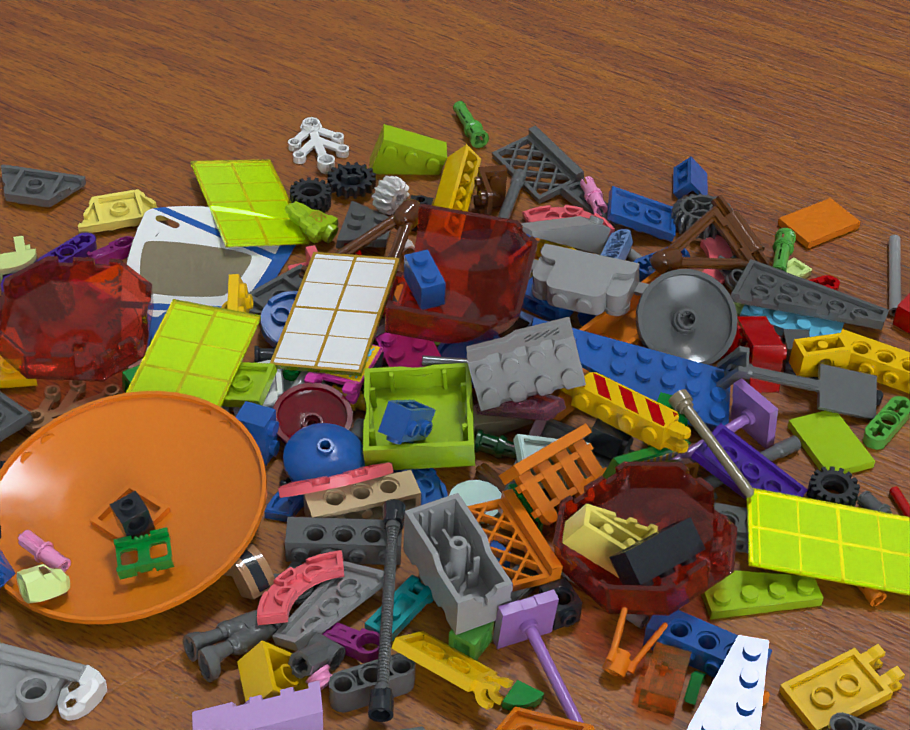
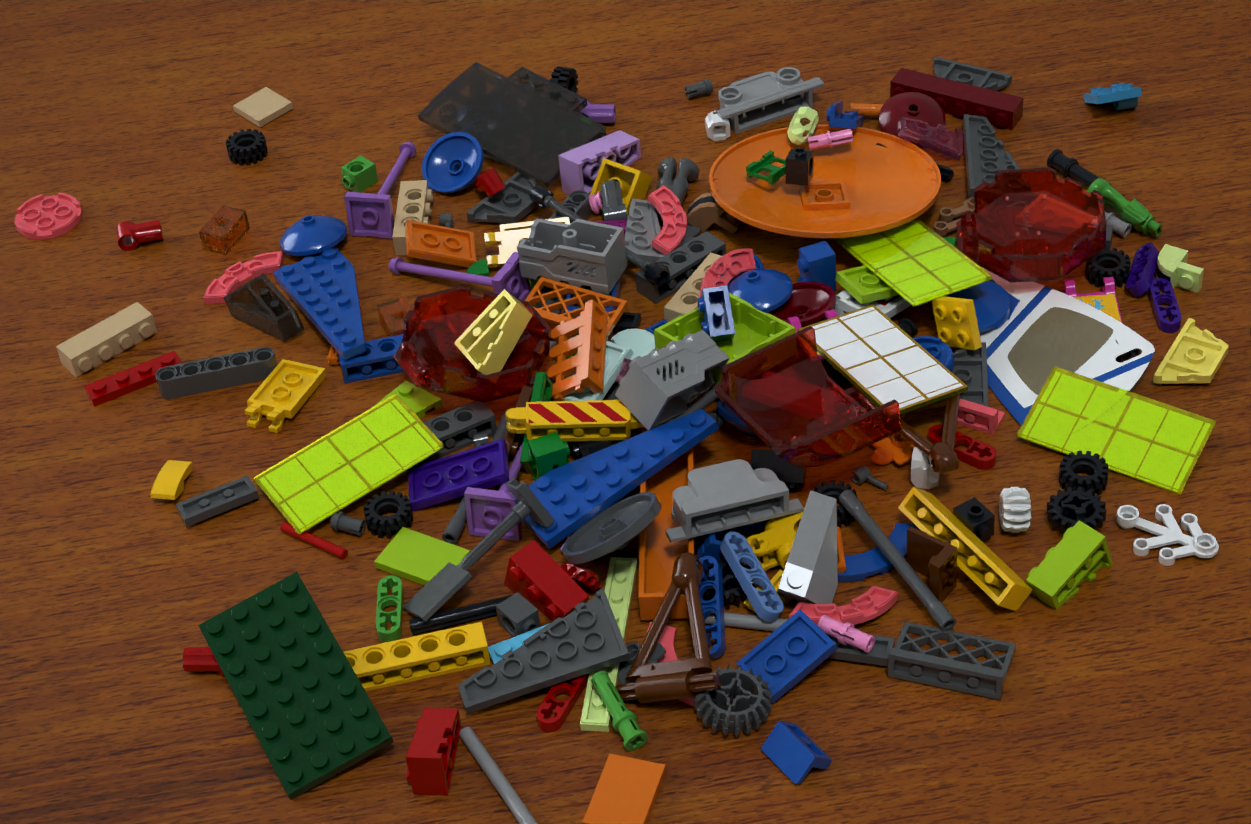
camera: 145 degrees right, 0 degrees up
(115, 250) = (1135, 319): magenta piece -> none
(312, 222) = (1031, 441): lime rock -> none
(357, 222) = (989, 469): dark grey wing -> none
(424, 279) = (839, 399): blue brick -> none
(472, 127) = (1069, 654): bright green pin -> none
(658, 554) = (451, 331): black brick -> none
(682, 402) = (536, 437): dark tan piece -> none
(694, 687) = (377, 331): green tile -> none
(817, 350) = (480, 590): yellow brick -> none

